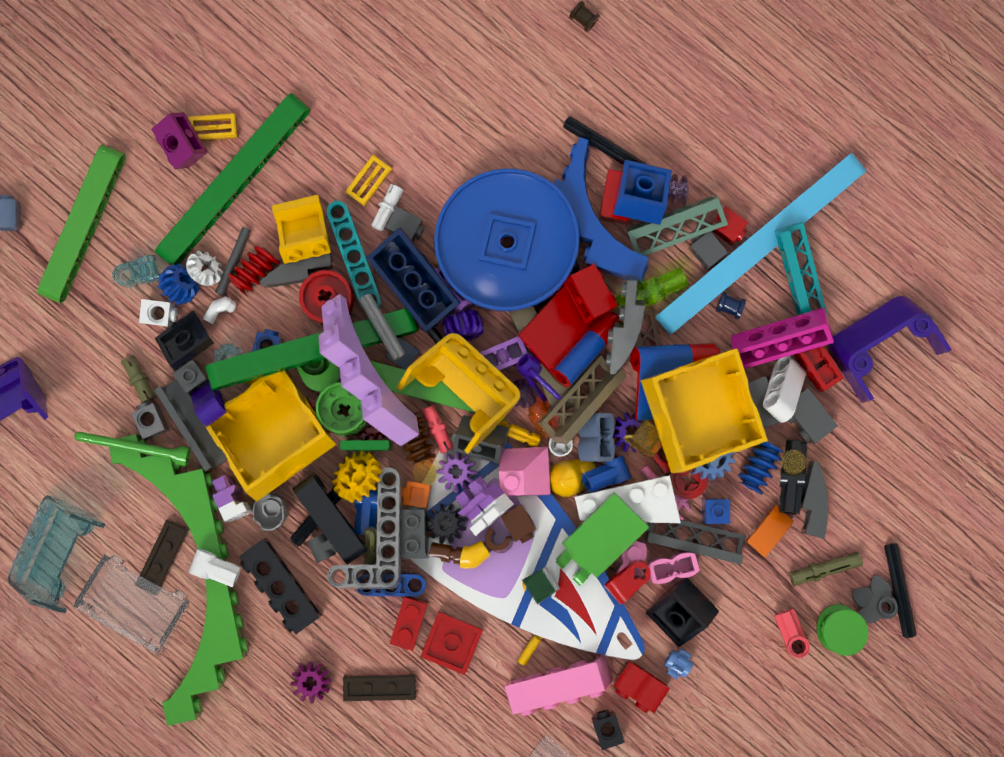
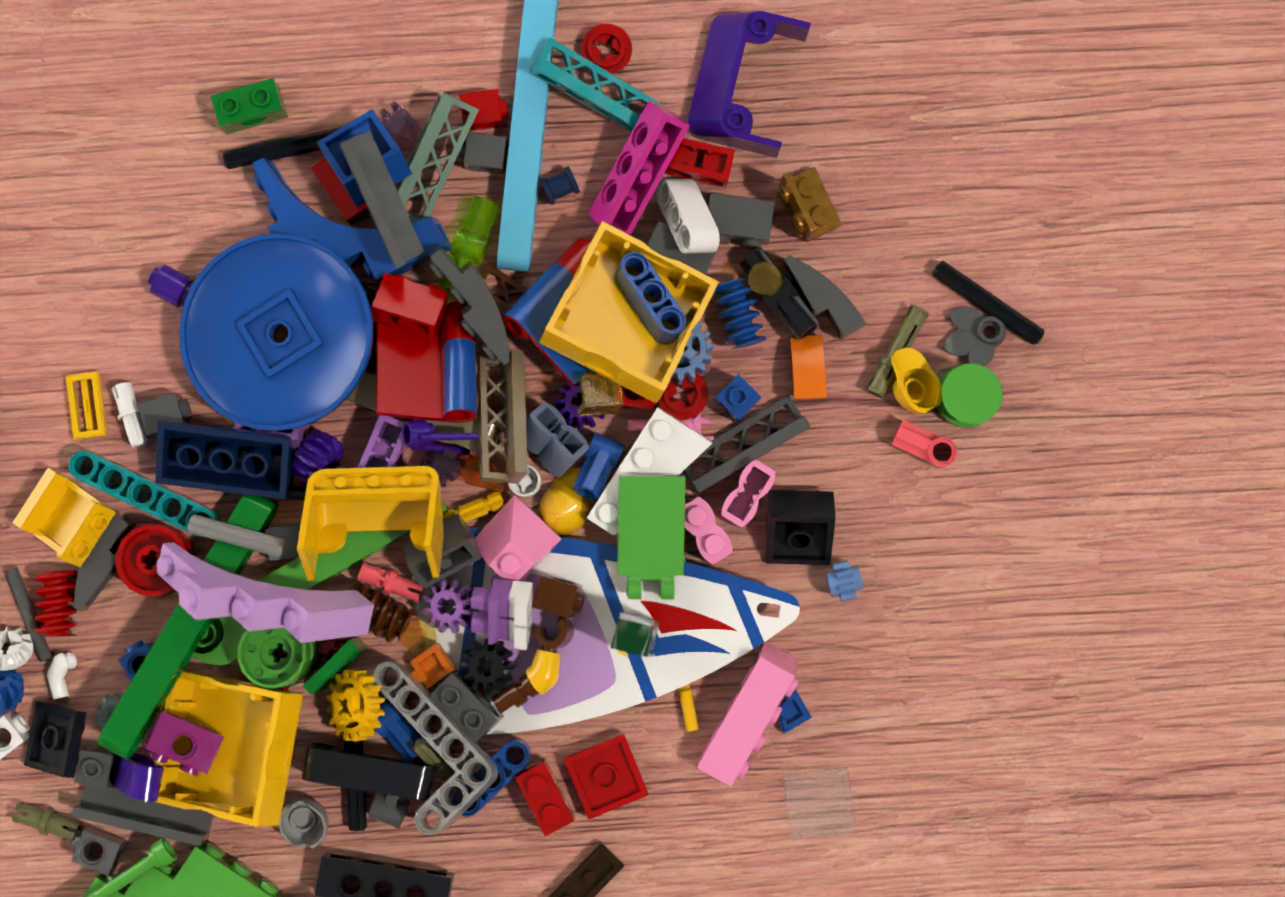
camera: 50 degrees left, 0 degrees up
(228, 499) = (251, 851): hips -> none
(248, 394) = (169, 727): none -> magenta brick
(474, 160) = (170, 285): none -> dark purple brick
(583, 707) = (793, 712): none -> blue tile
(584, 16) = (143, 40): dark brown bush -> none
(606, 105) = (249, 106): none -> green brick
(607, 740) = (851, 715): black brick -> none
(624, 584) = (715, 555): red piece -> none
(631, 223) = (381, 198): none -> dark grey fence
(641, 686) = (829, 638): red brick -> none
(730, 405) = (650, 283): none -> blue beam
(819, 598) = (916, 382): none -> yellow piece
(835, 262) = (601, 35): none -> red gear
(854, 444) = (809, 203): none -> pearl gold bracket

